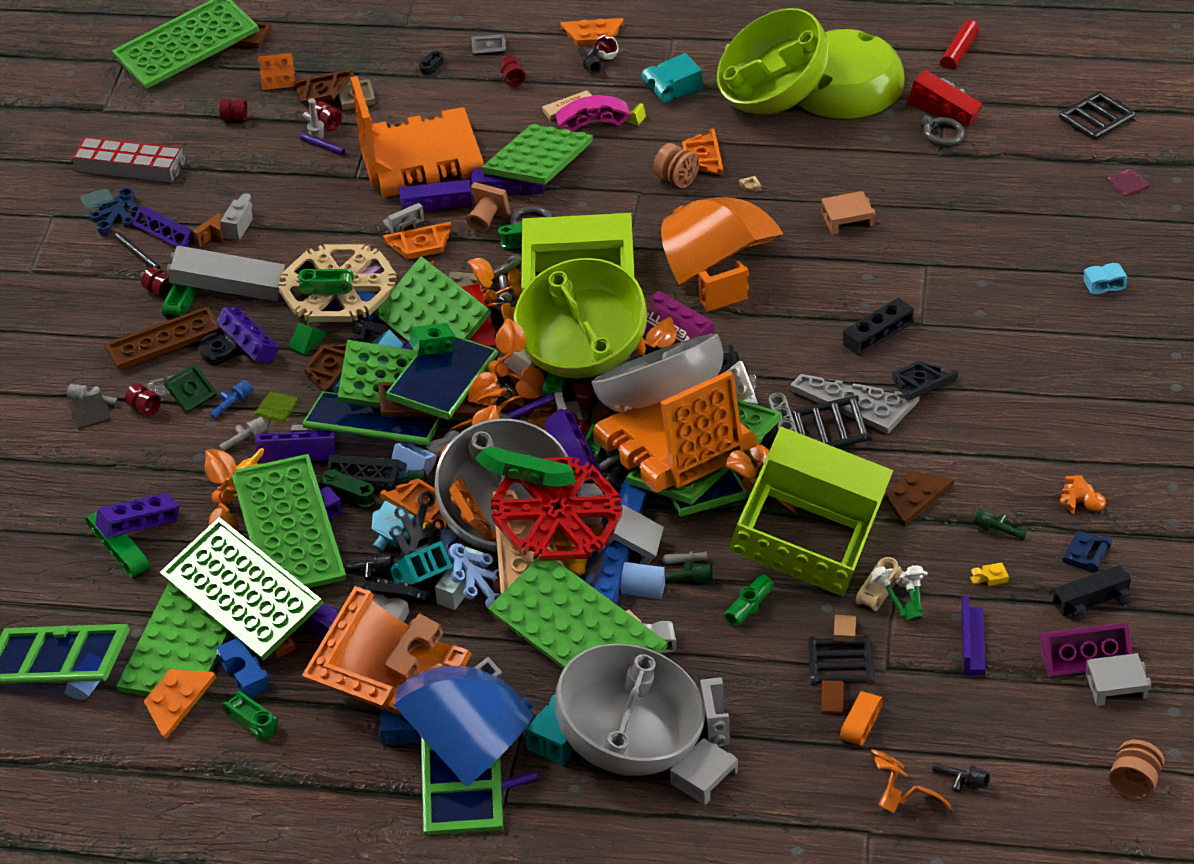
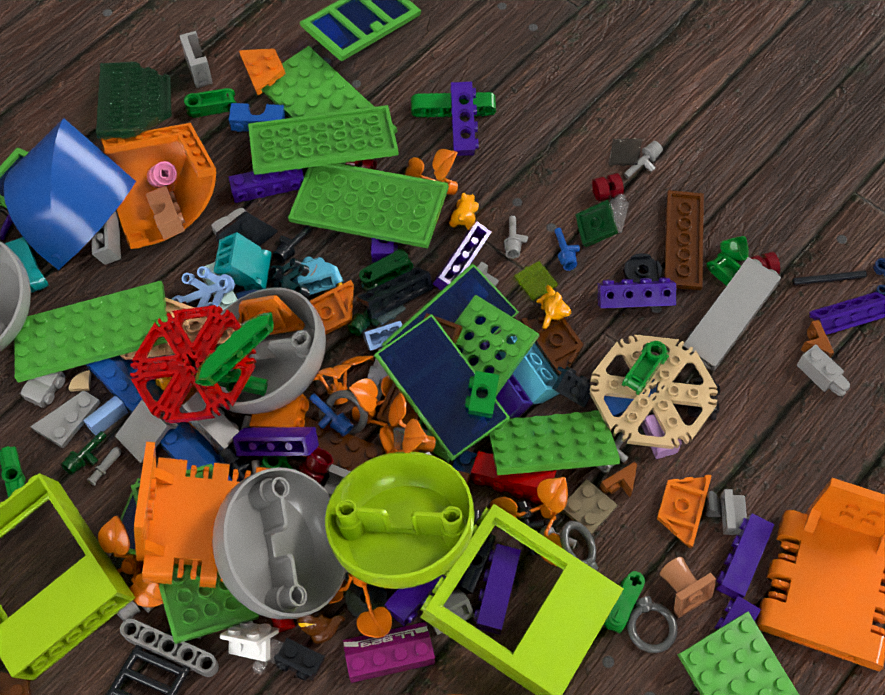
camera: 120 degrees right, 20 degrees up
(152, 307) = (736, 248): none -> green helmet
(208, 750) = (198, 67): none -> light grey panel
(301, 368) = (554, 306): none -> light orange animal
(303, 745) = (131, 100): none -> clear green plate
(305, 338) = (605, 339): green slope -> none
(375, 670) = (161, 174): none -> bright pink wheel
(531, 407) = (369, 440): dark purple bar -> none
(672, 607) = (67, 419): none -> light grey wing

